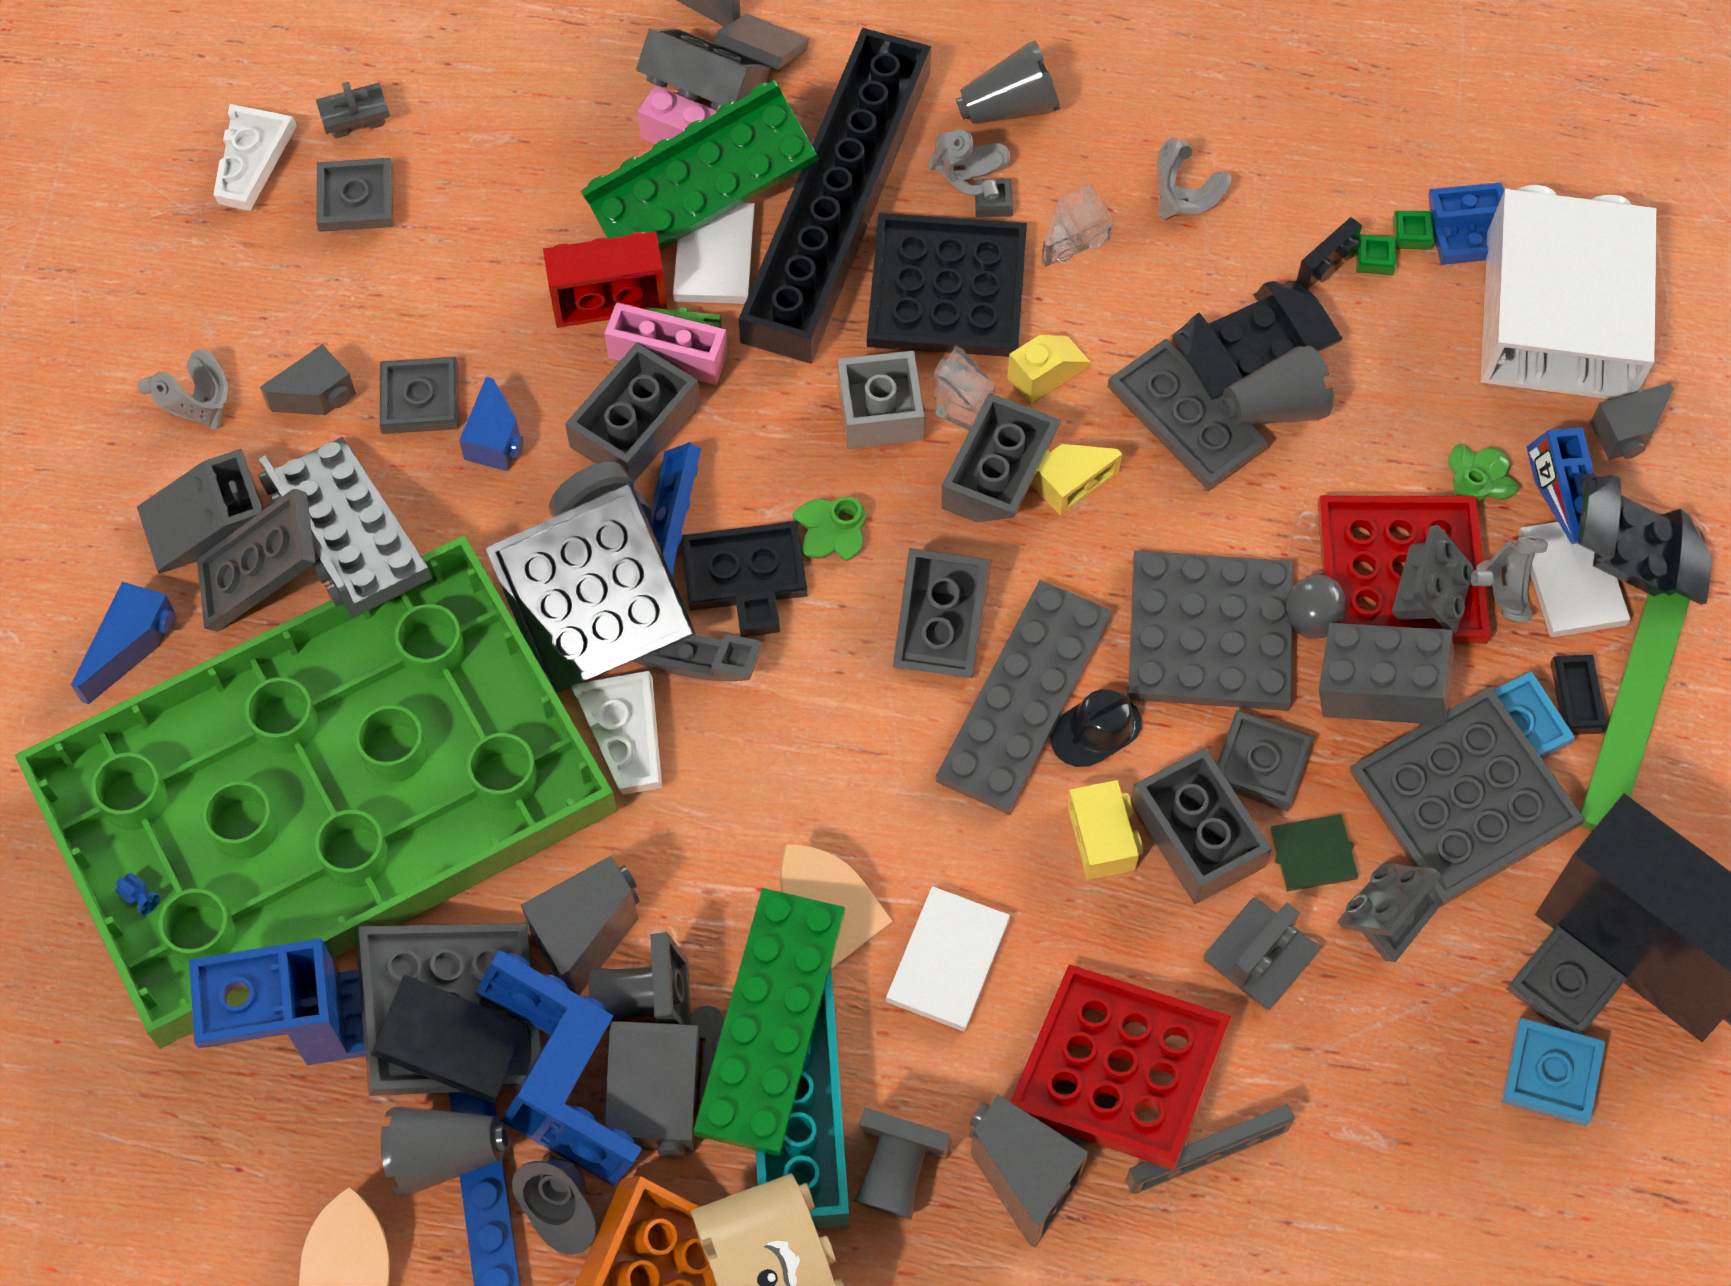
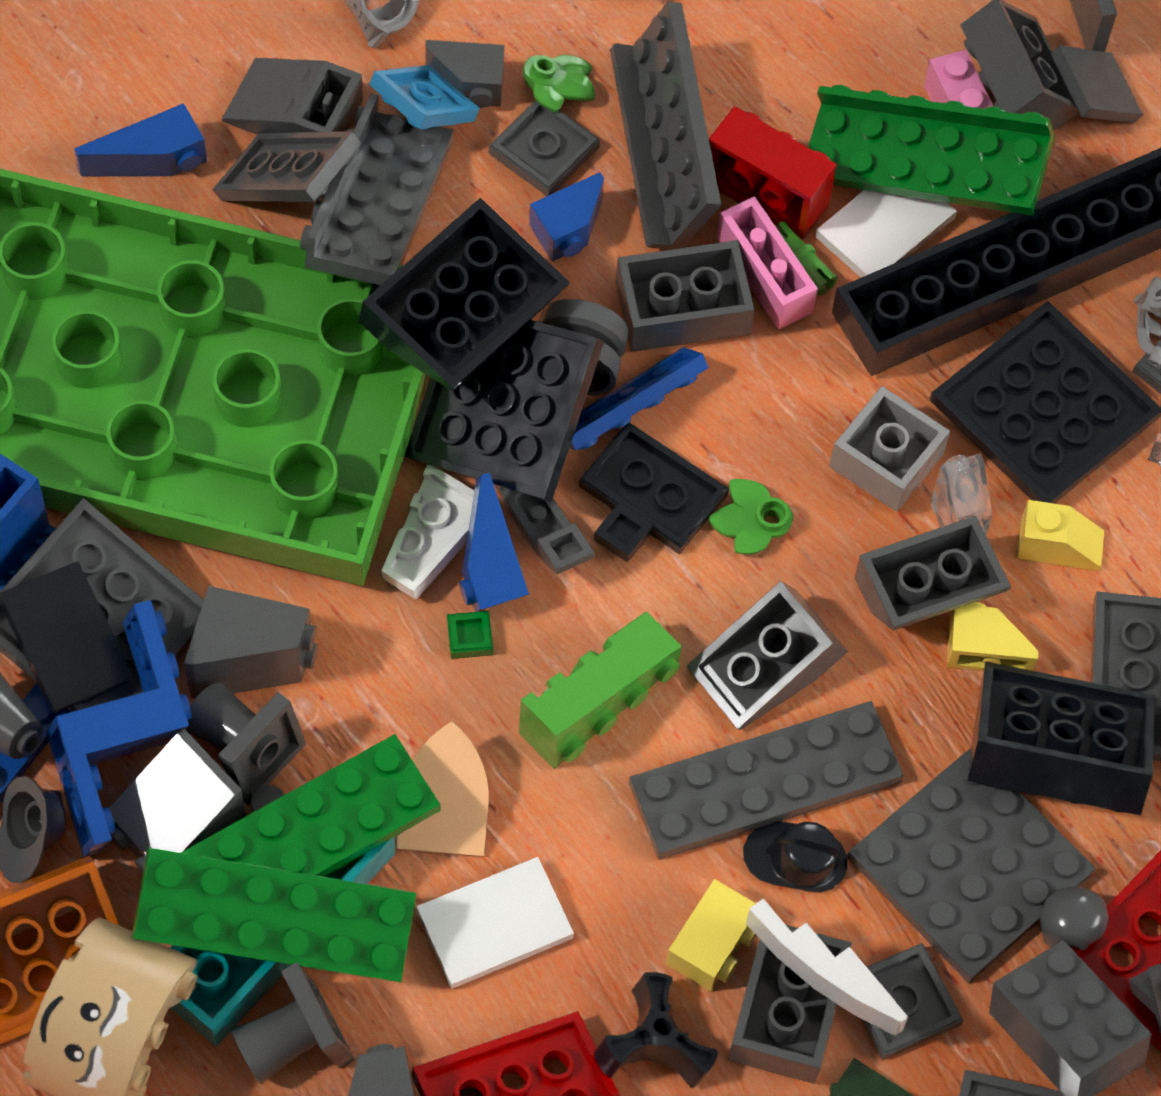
camera: 40 degrees right, 0 degrees up
(299, 429) = (424, 96): none -> dark azure plate
(382, 339) = (558, 80): none -> bright green plate
(497, 540) = (461, 296): none -> black slope
(503, 308) = (666, 131): none -> dark grey bracket
(687, 709) = (490, 560): none -> blue slope
(723, 778) = (469, 634): none -> green tile
(811, 1092) = (273, 915): none -> green plate
(855, 735) = (598, 690): none -> bright green wedge
(1138, 930) = (656, 1036): none -> black piece
(1193, 492) = (1063, 738): none -> black slope
(1229, 776) = (839, 978): none -> white slope

